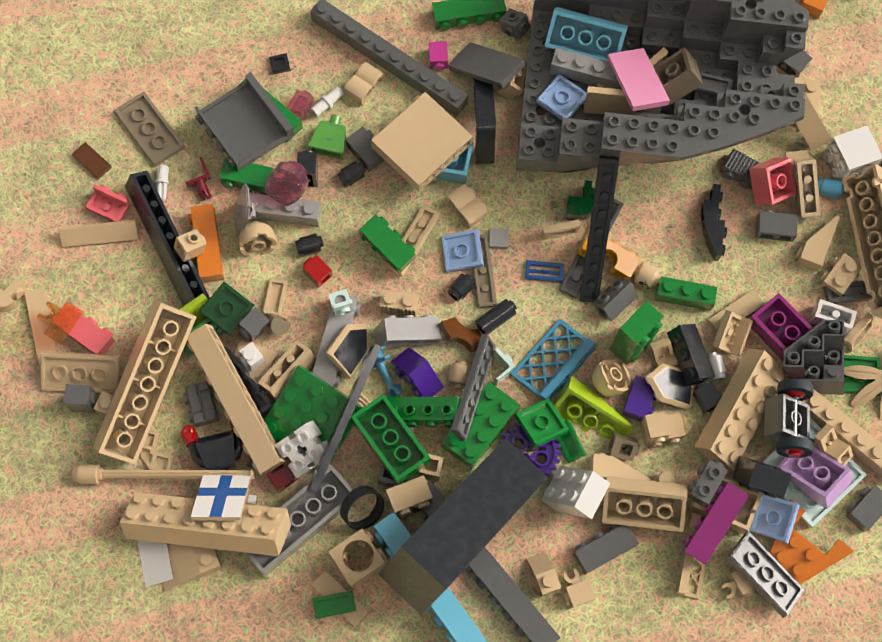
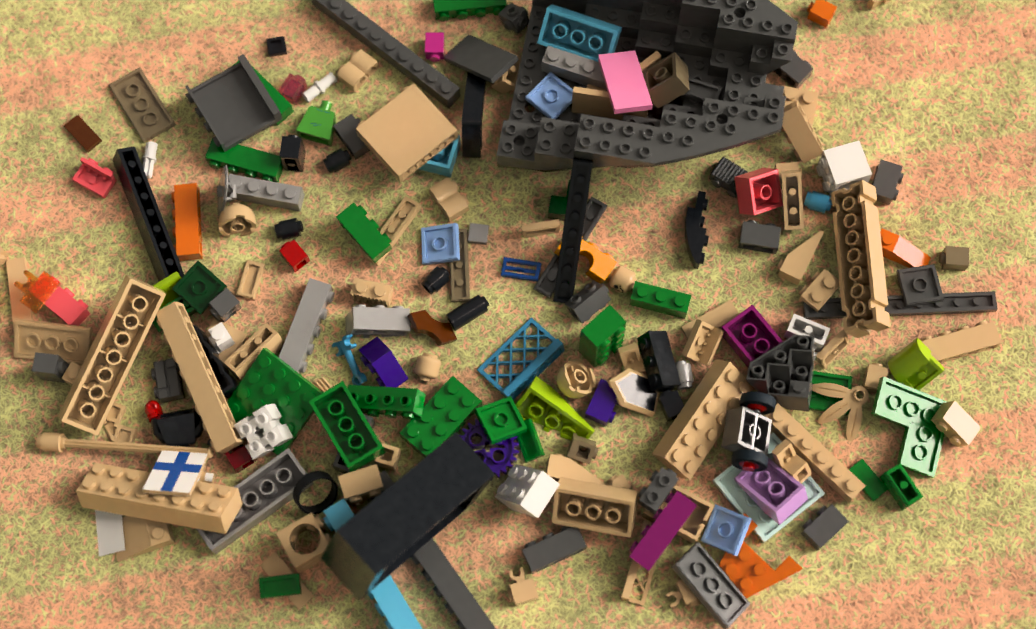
camera: 10 degrees right, 0 degrees up
(98, 233) = (83, 205): tan tile -> none
(190, 245) = (169, 222): tan brick -> none
(200, 183) = (187, 161): dark red bracket -> none
(278, 324) = (250, 306): dark tan brick -> none
(287, 182) = (268, 166): clear pink brick -> none
(343, 307) = (314, 293): light aqua bracket -> none
(343, 419) = (302, 403): black tile -> none
(349, 348) = (318, 334): black tile -> none
(473, 388) = (435, 381): dark grey tile -> none
(506, 360) = (473, 355): light aqua bracket -> none
(544, 574) = (490, 570): tan slope -> none
(662, 428) = (622, 434): tan brick -> none
(761, 477) = (714, 488): black brick -> none

